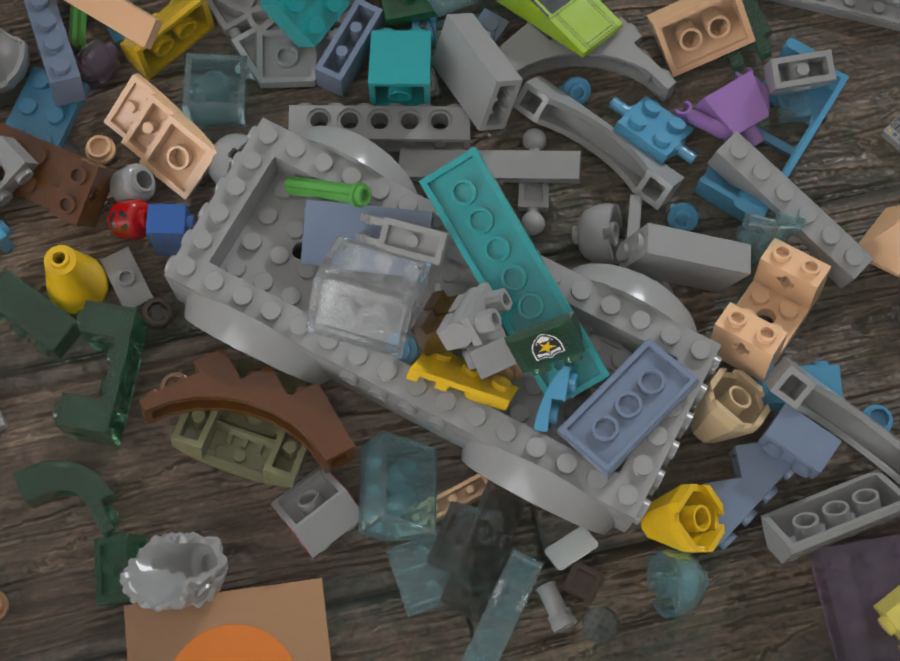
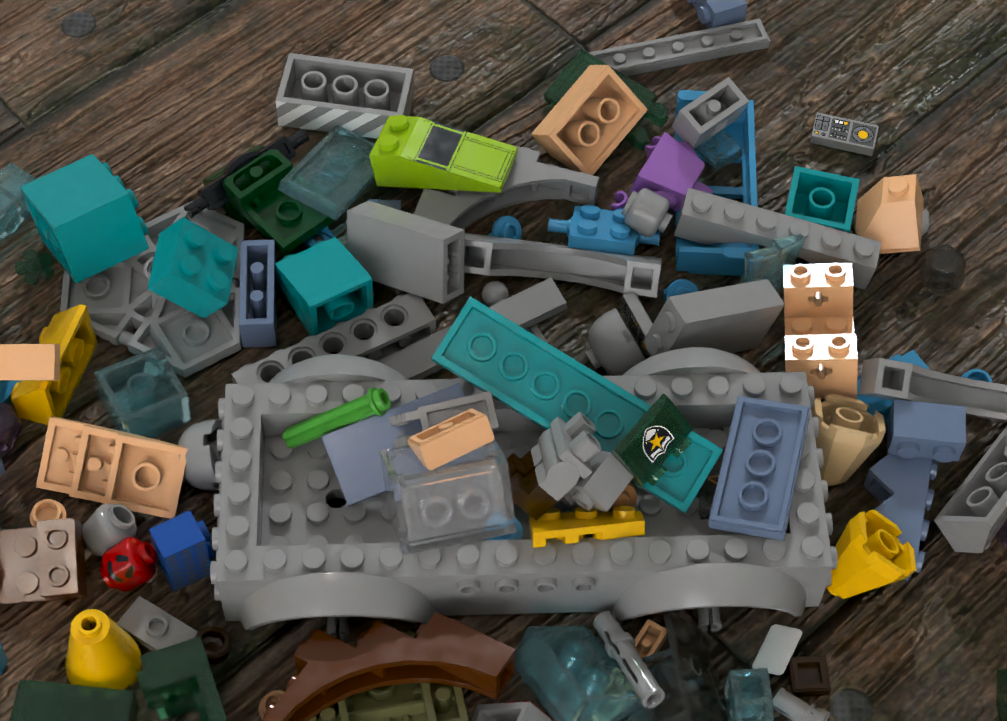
camera: 30 degrees left, 15 degrees down
(392, 257) = (451, 438): none -> light nougat slope
(445, 483) = (621, 647): none -> light grey pin
(559, 389) = (684, 483): dark azure slope -> none
(677, 582) = (898, 622): clear light blue cylinder -> none
(693, 133) = (647, 212): none -> light grey head
(848, 195) = (822, 198): none -> teal brick

